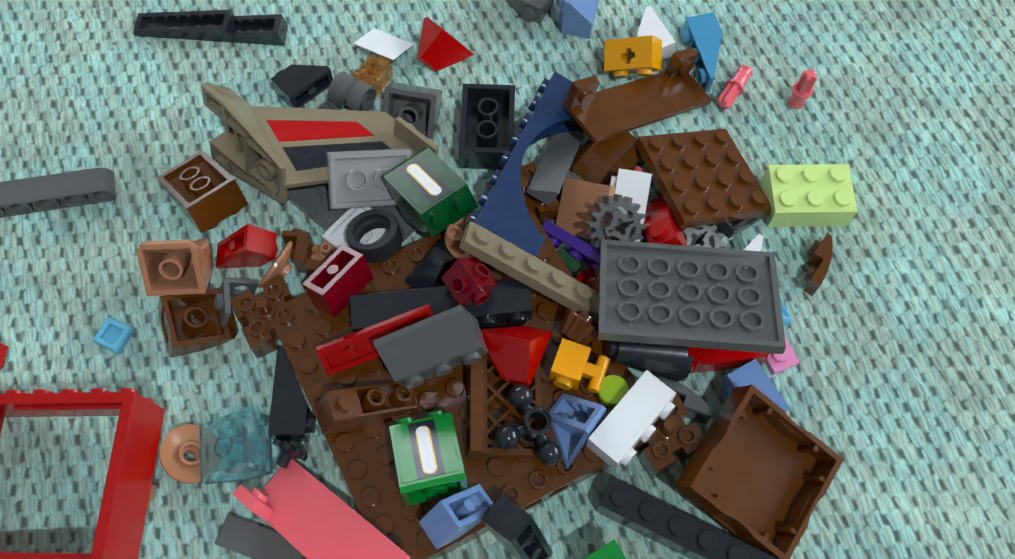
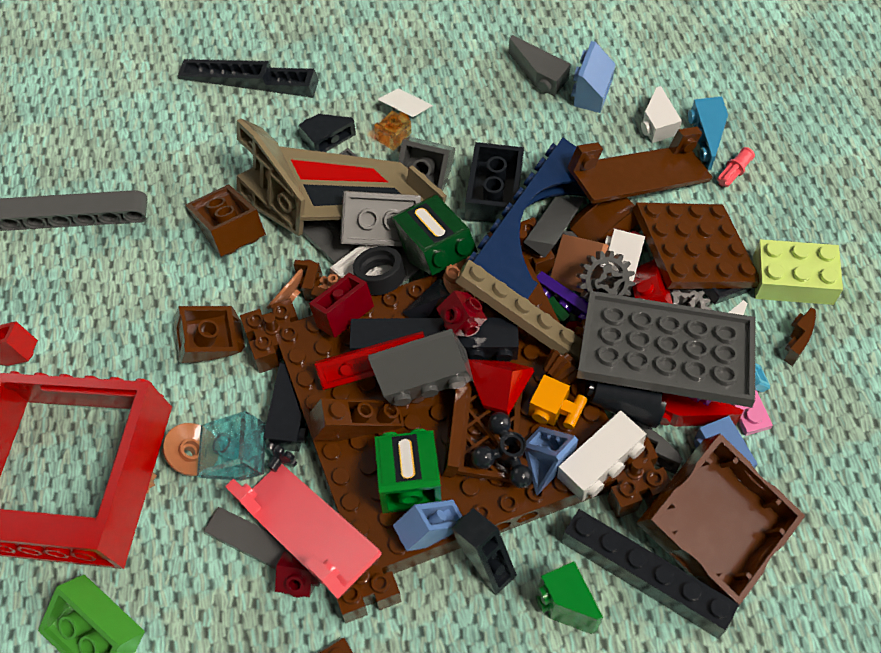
camera: 10 degrees right, 5 degrees down
(113, 335) = (132, 340): medium azure tile -> none
(175, 266) = (195, 280): nougat hips -> none
(222, 298) = (235, 313): dark grey bracket -> none
(246, 248) = (260, 273): red slope -> none
(347, 91) = (370, 143): dark grey wheel -> none
(439, 48) = (457, 110): red slope -> none
(612, 390) = (586, 427): lime tile -> none
(644, 51) = (639, 130): light orange brick -> none
(802, 89) = (801, 173): coral axle -> none

